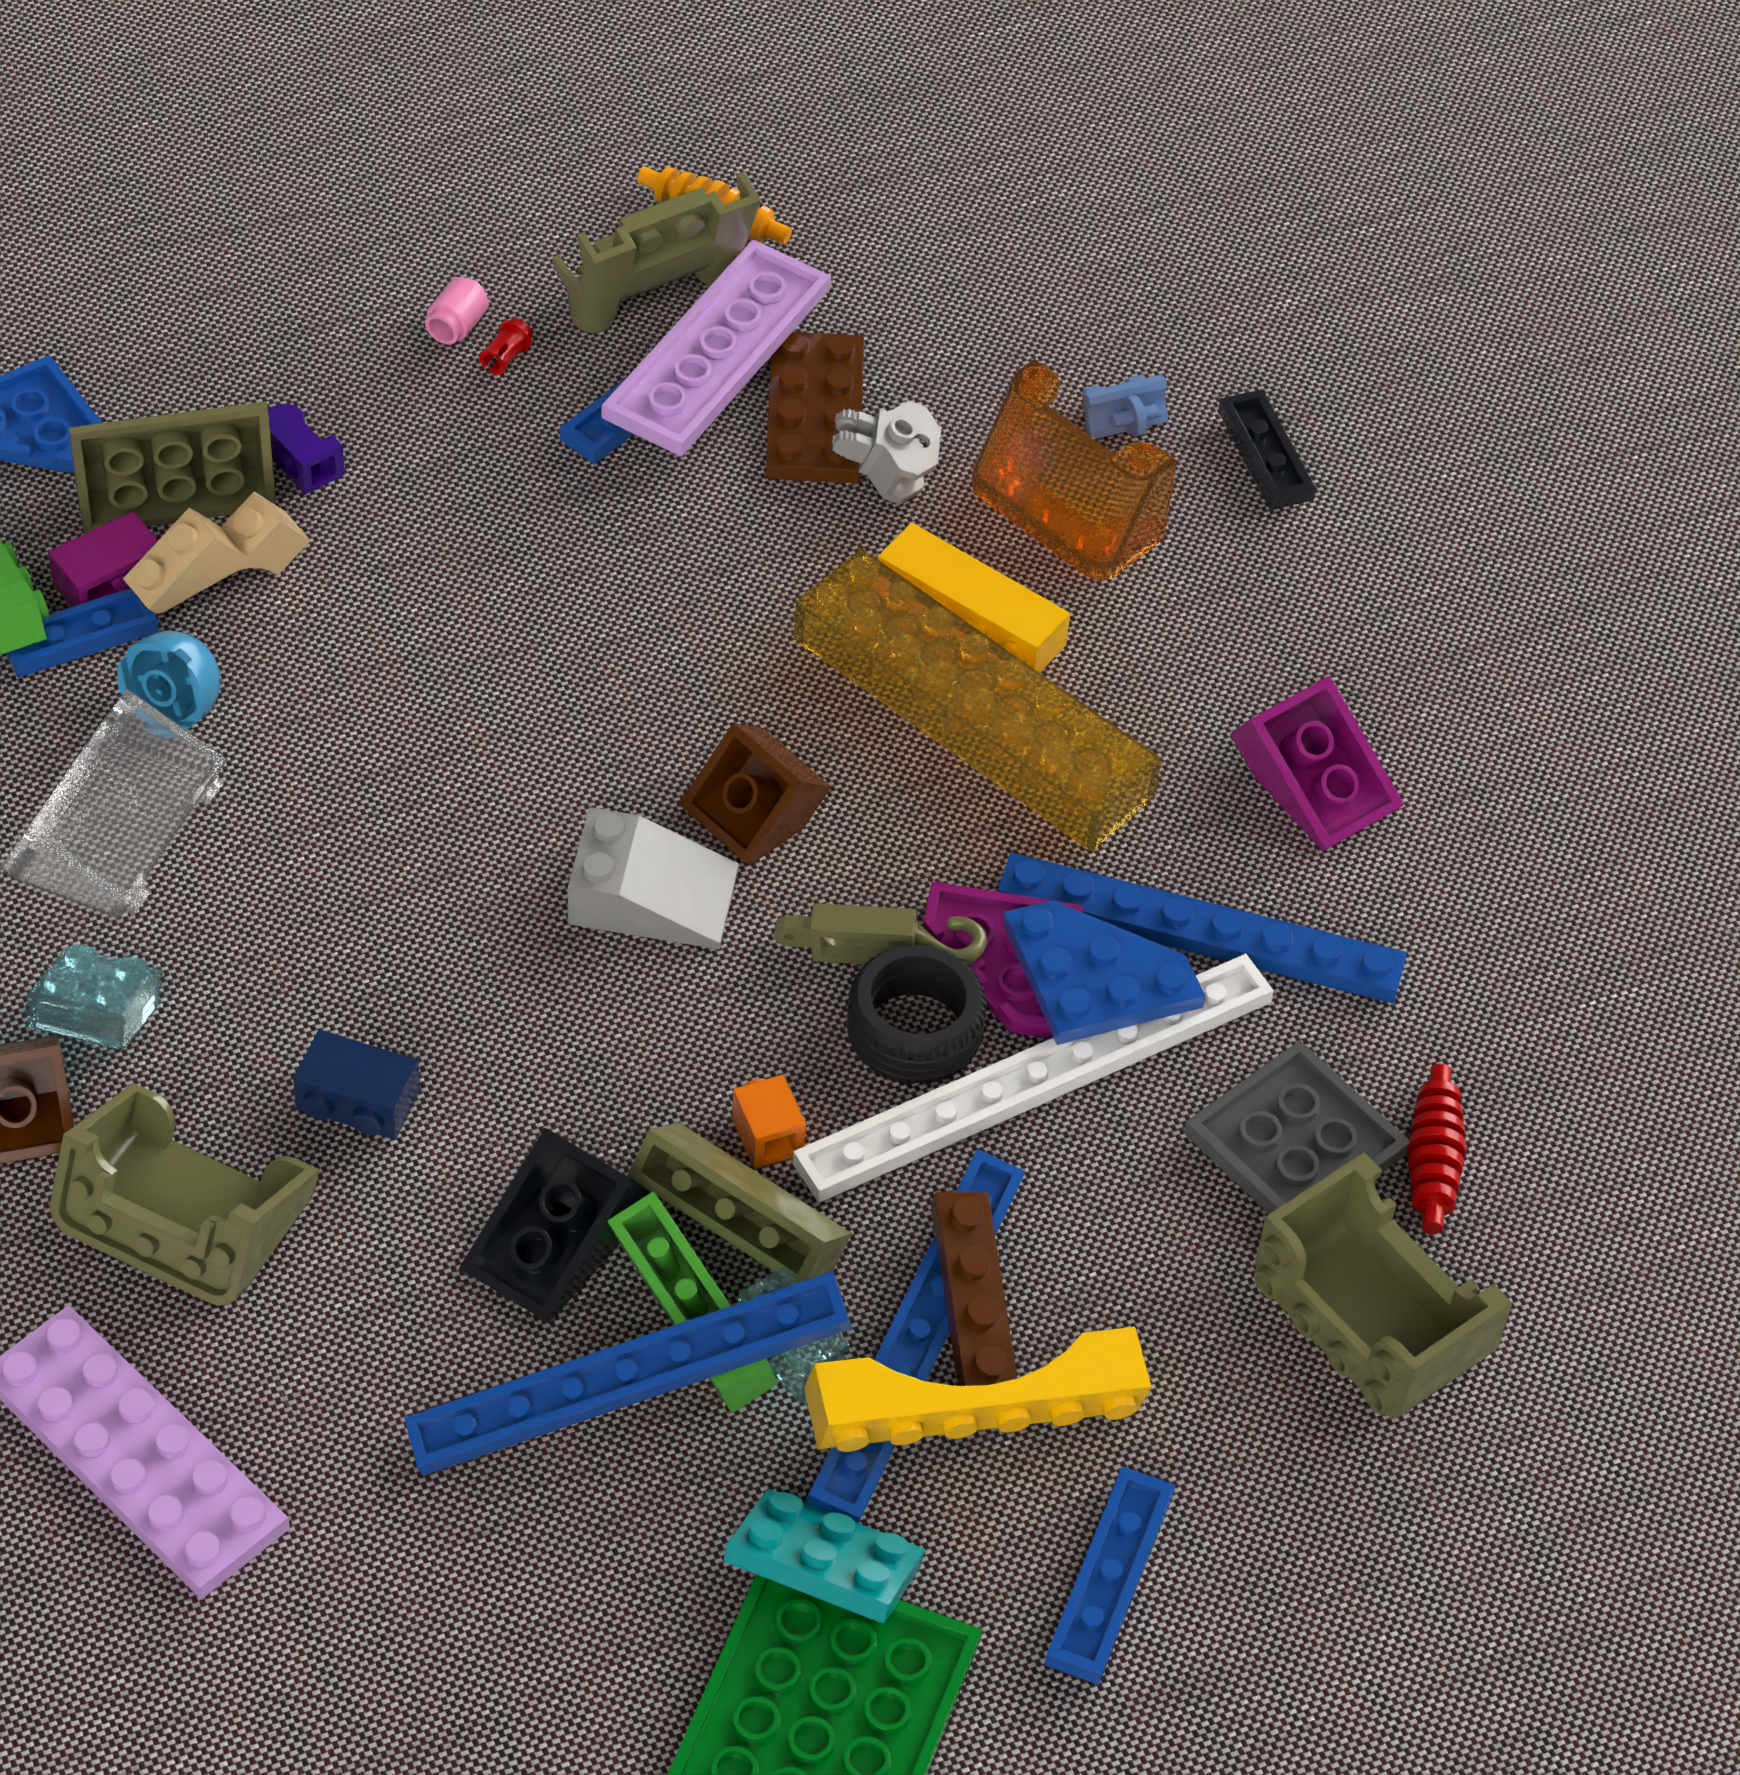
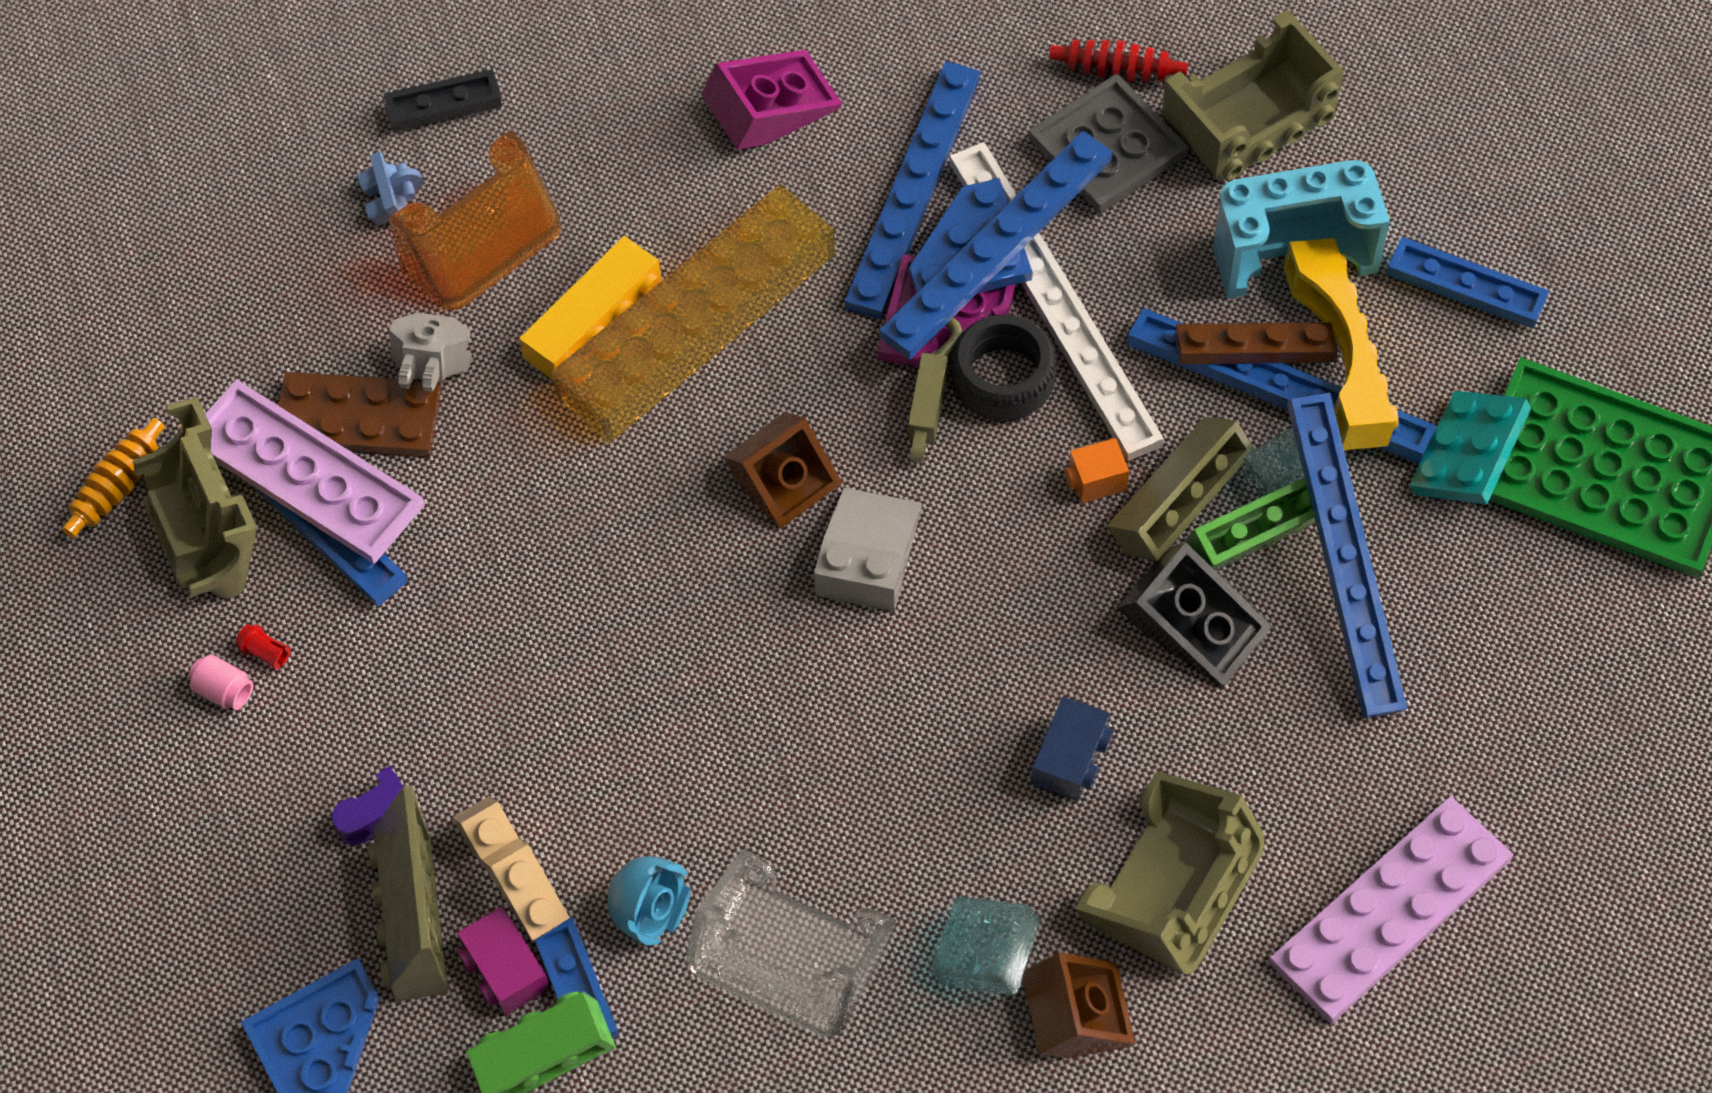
camera: 80 degrees left, 10 degrees up
(1091, 983) = (995, 245): none -> blue plate
(1153, 1272) = (1311, 203): none -> medium azure windscreen

